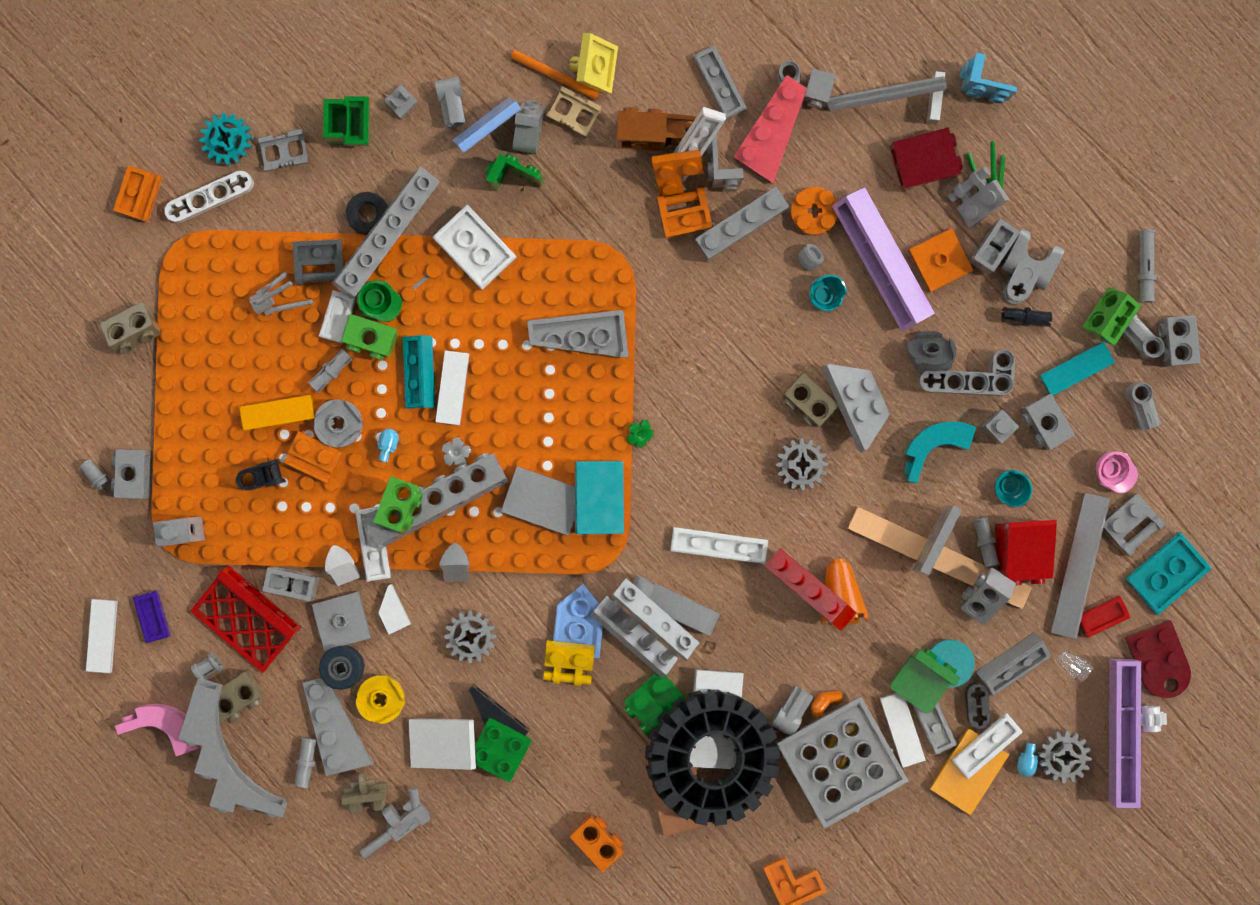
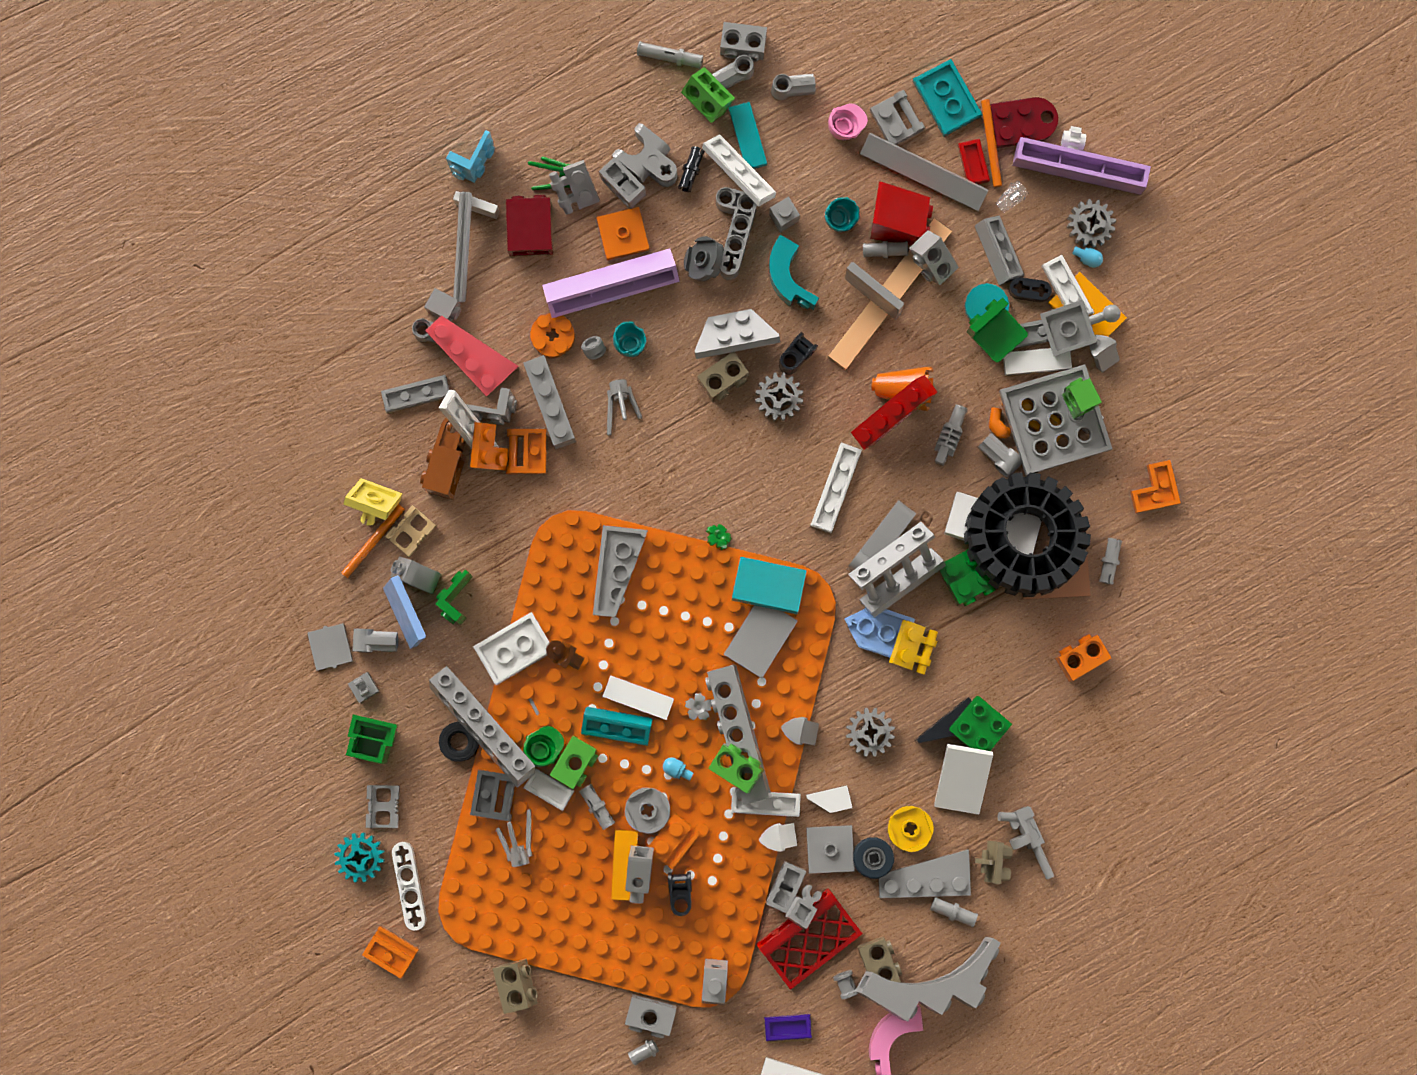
camera: 75 degrees left, 5 degrees down
(269, 605) = (801, 910): none -> light grey plate
(271, 428) = (639, 866): none -> light grey torso
(435, 57) = (330, 647): none -> light grey piece
(477, 300) = (563, 654): none -> reddish brown hips
(705, 850) = (1110, 561): none -> light grey pin
(770, 295) = (619, 391): none -> light grey plant
(801, 654) = (950, 435): none -> light grey hinge
(856, 474) = (800, 351): none -> black piece
(870, 784) = (1081, 397): none -> bright green brick
(928, 797) = (1104, 352): none -> light grey tile
(946, 758) = (1071, 326): none -> light grey plate
(1036, 368) = (739, 170): none -> white tile
(1059, 429) = (798, 162): light grey brick -> none
(1128, 631) = (991, 143): none -> orange bar

